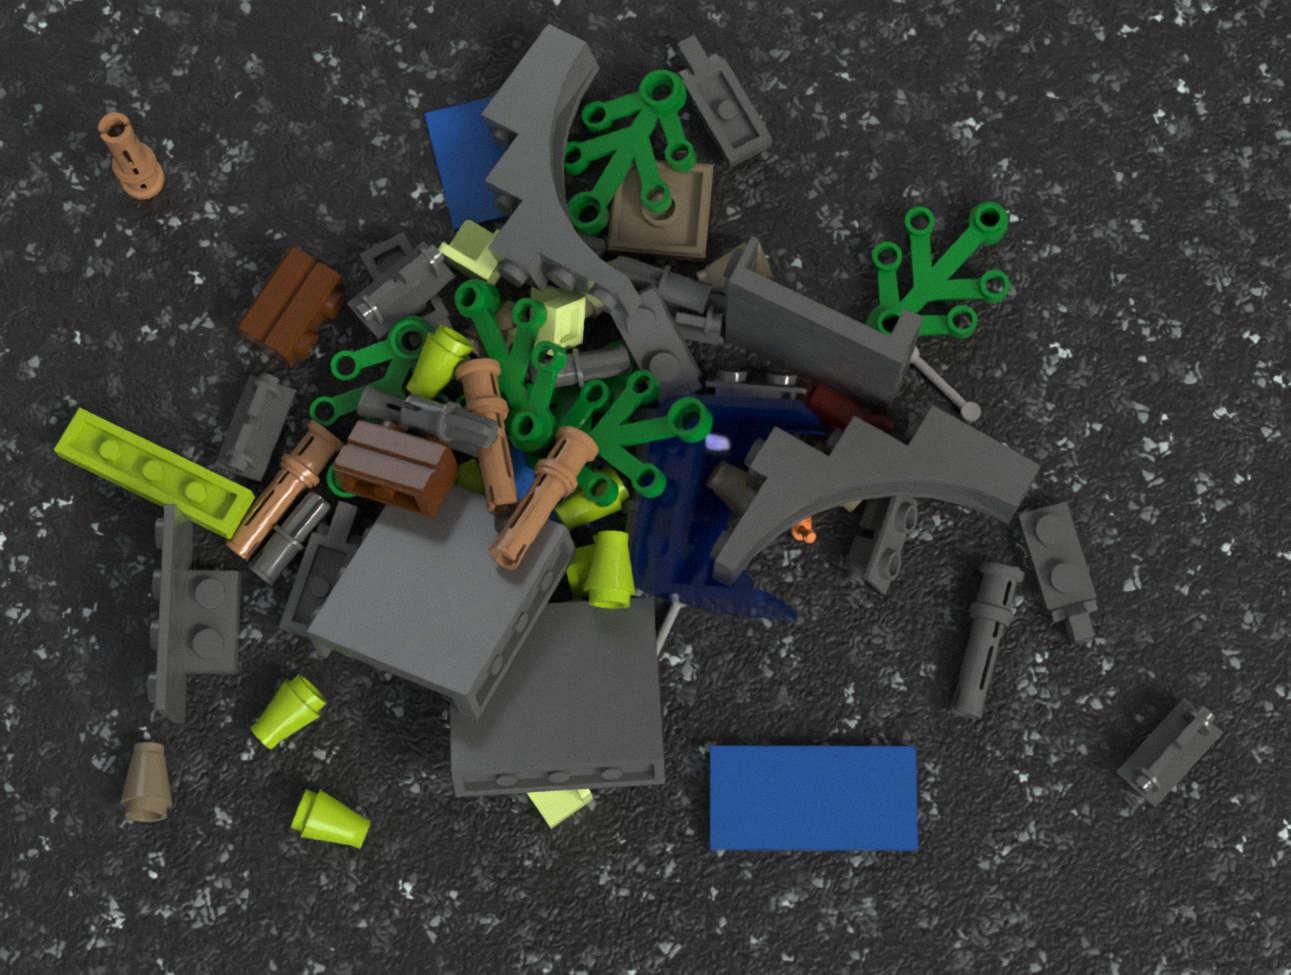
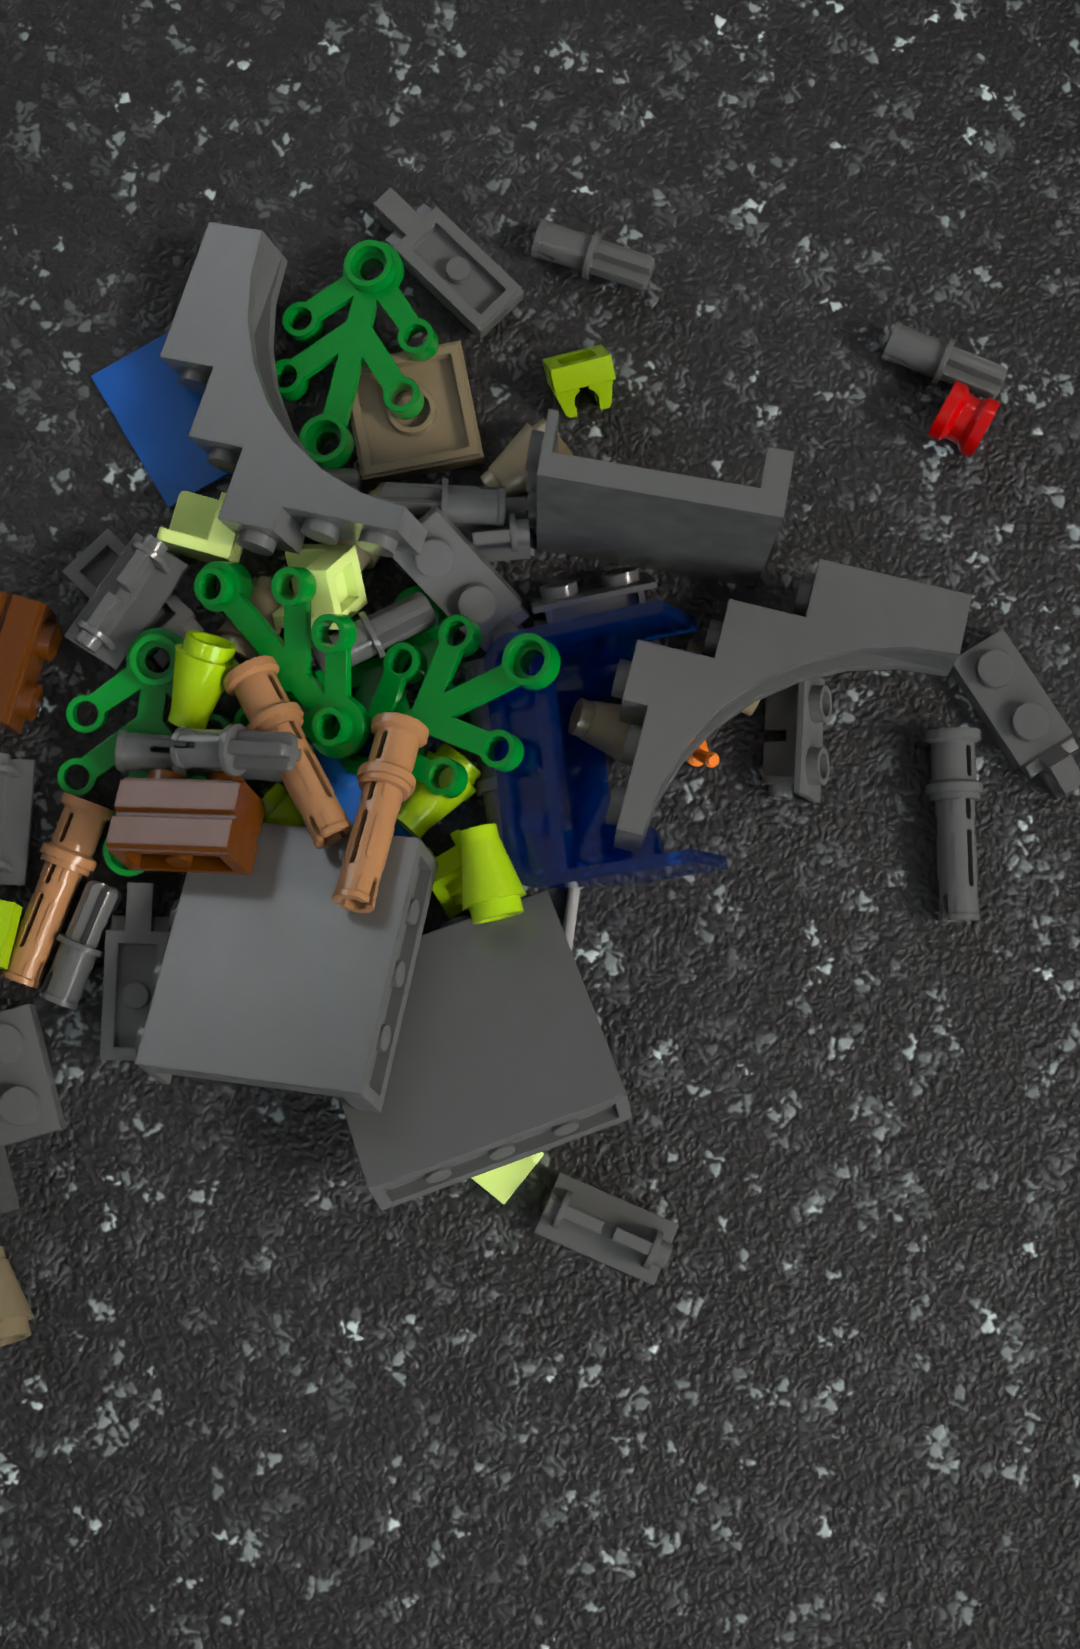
camera: 20 degrees left, 5 degrees up
(289, 711) = (144, 1156): lime cone -> none
(329, 820) = (233, 1278): lime cone -> none
(622, 868) = (607, 1229): none -> dark grey hinge
(797, 212) = (579, 369): none -> lime tile
(813, 798) = (808, 1075): blue tile -> none
(834, 128) = (592, 255): none -> dark grey axle
(839, 410) = (707, 597): clear red bar -> none
(933, 282) = (765, 409): green plant -> none
(968, 410) = (853, 553): light grey hinge -> none
(1083, 284) = (944, 361): none -> dark grey axle
(1083, 332) = (963, 419): none -> red wheel

